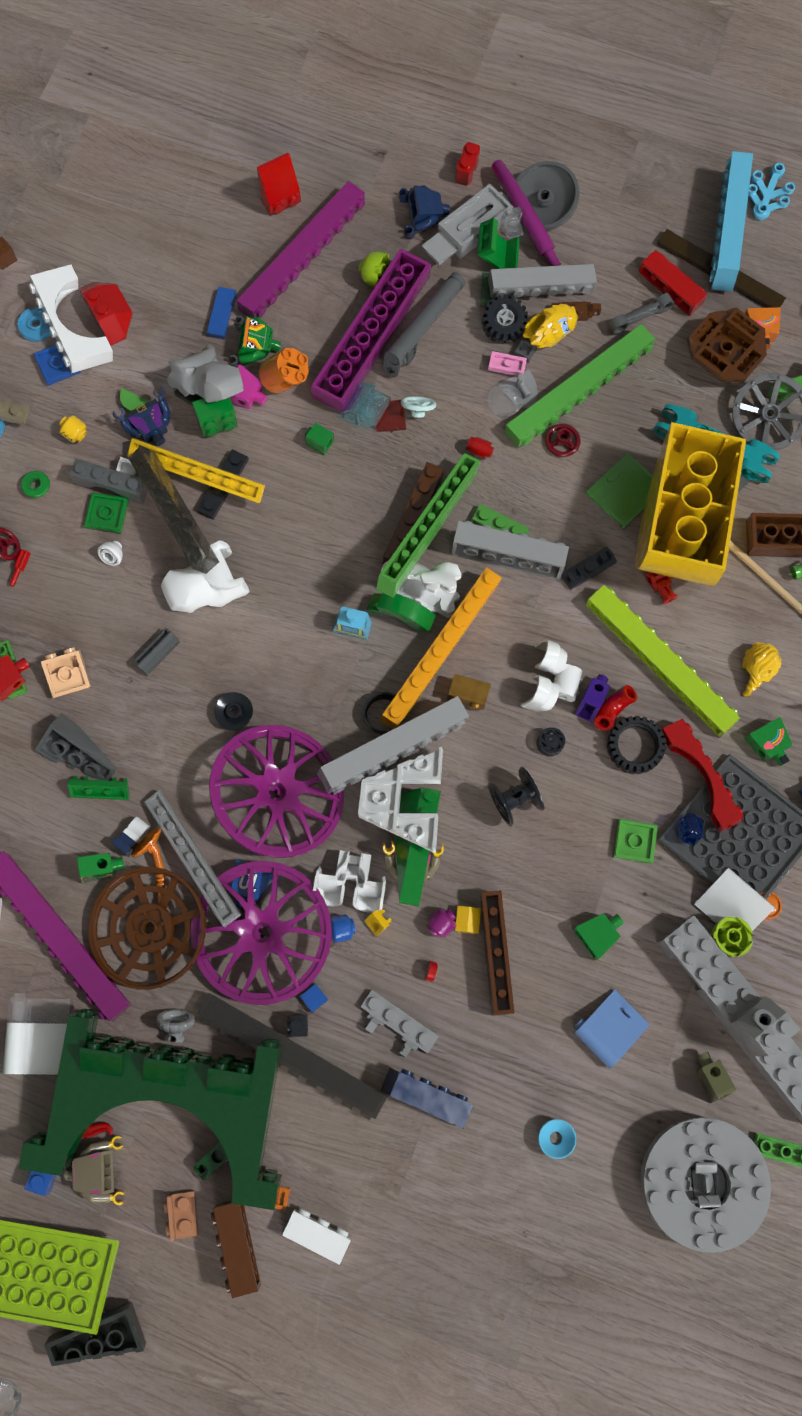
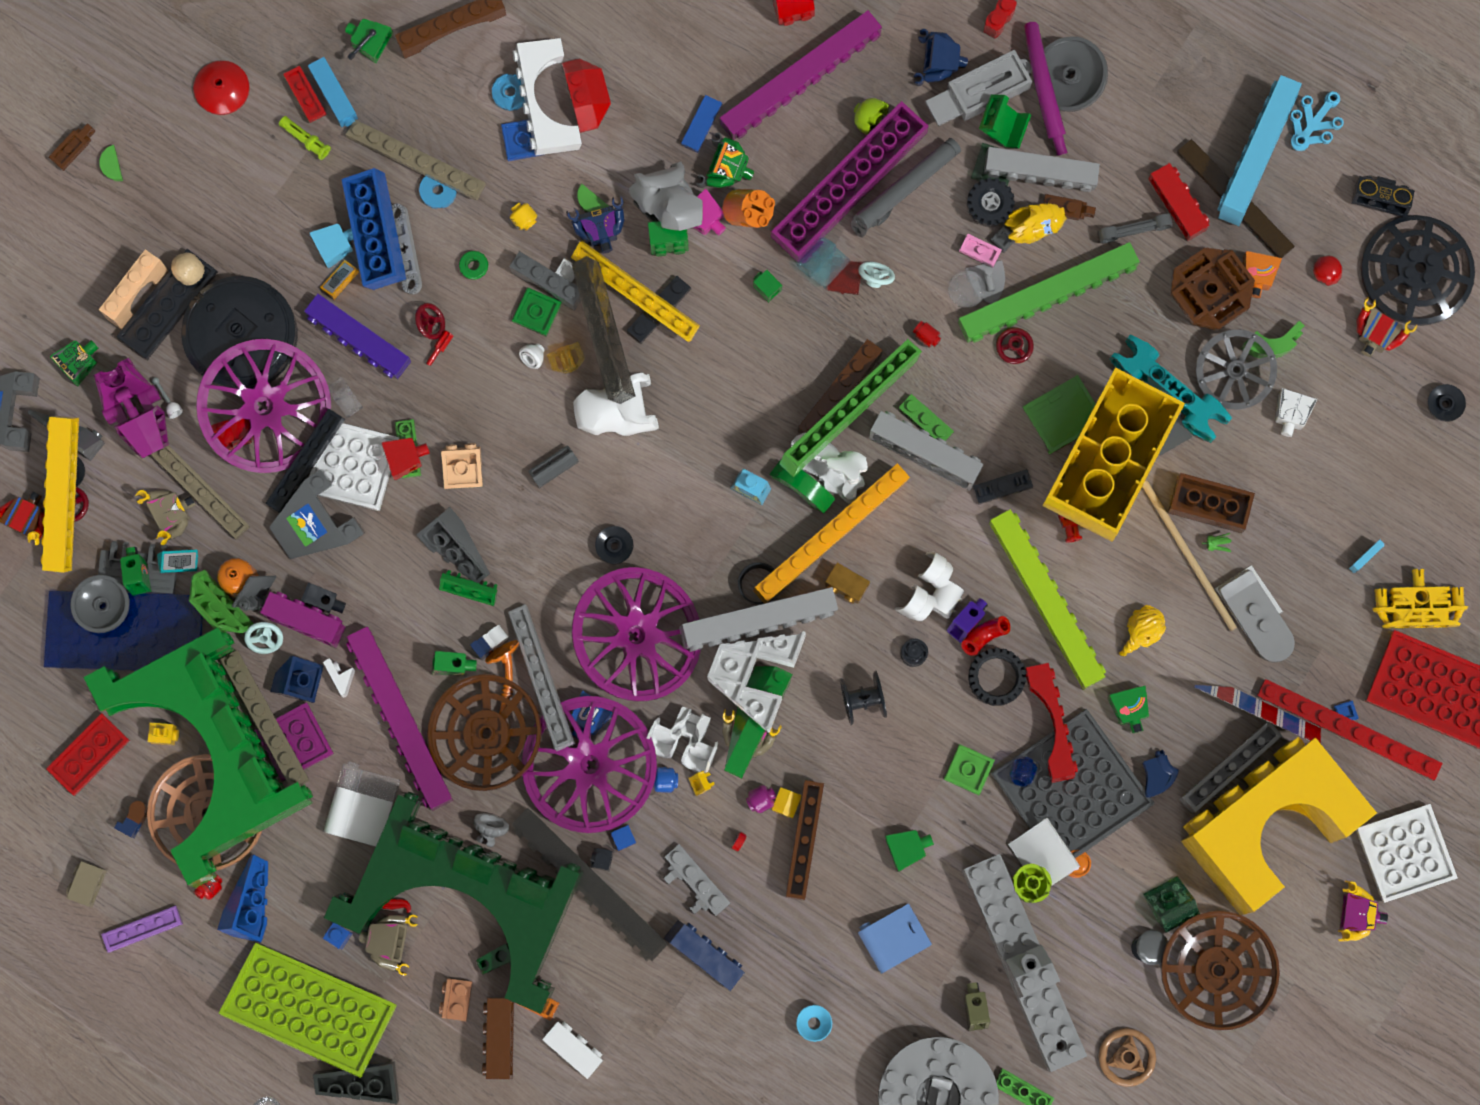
camera: 20 degrees right, 5 degrees up
(141, 542) = (566, 358): none -> clear yellow piece
(510, 223) = (1026, 100): clear slope -> none

